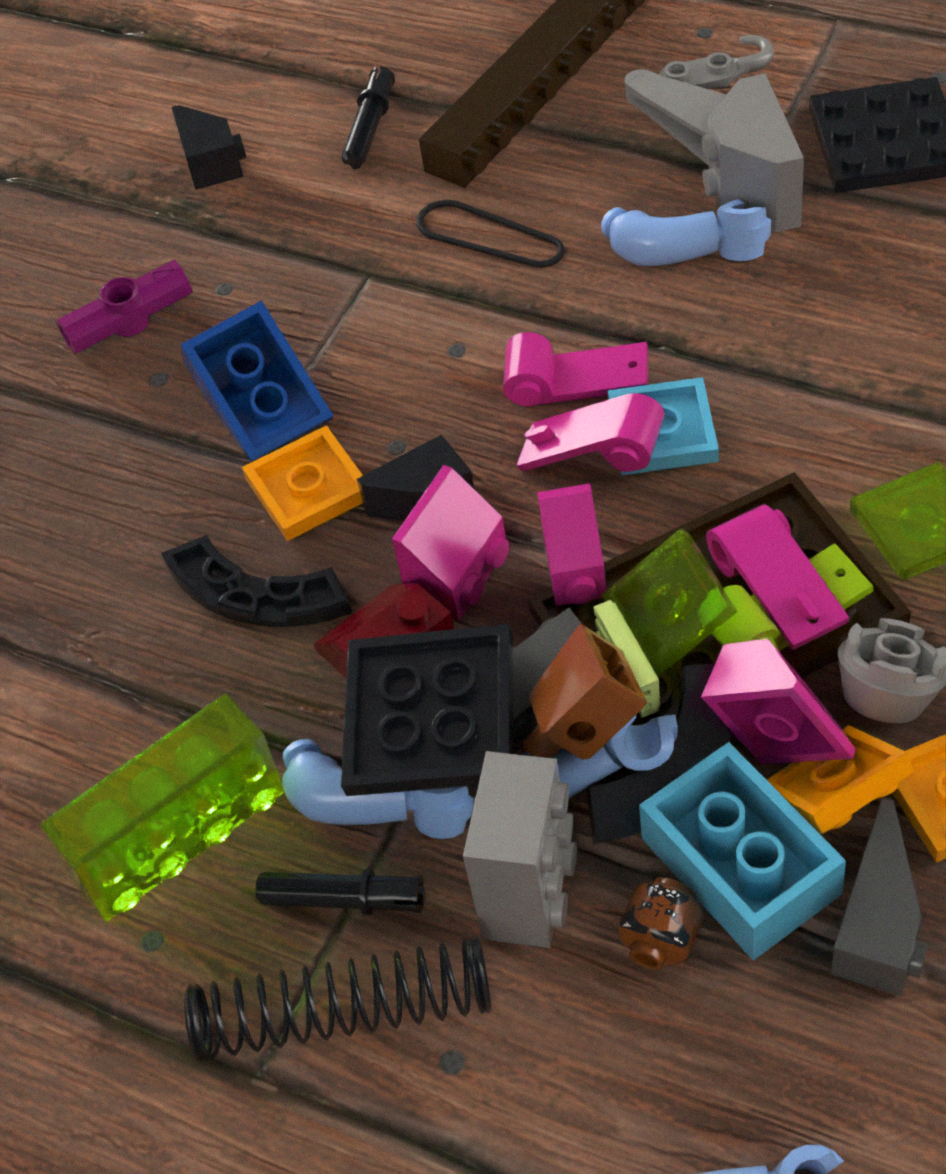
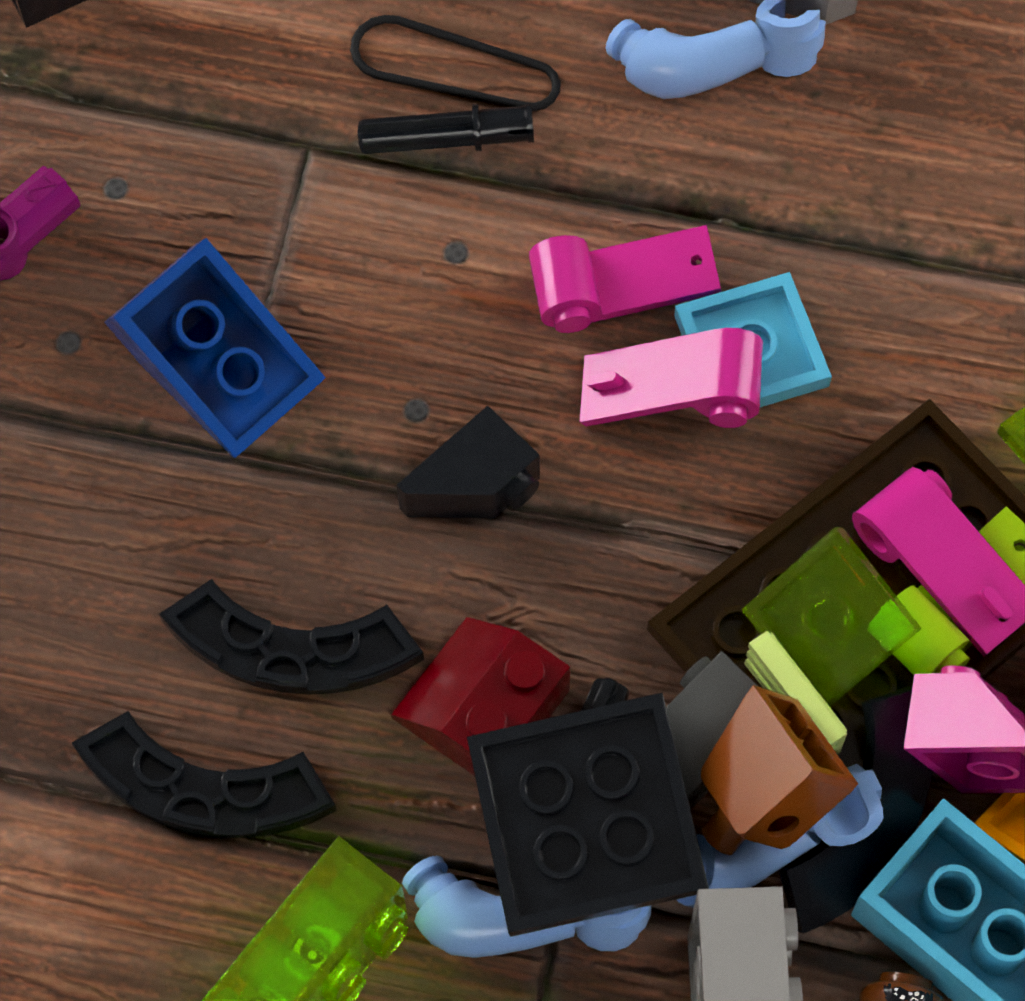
camera: 20 degrees left, 15 degrees up
(149, 684) = (201, 799): none -> black tile
(305, 482) = (320, 485): light orange plate -> none
(451, 542) = (542, 565): dark pink slope -> none
(470, 268) = (447, 130): none -> black axle
(572, 544) = (702, 561): dark pink slope -> none

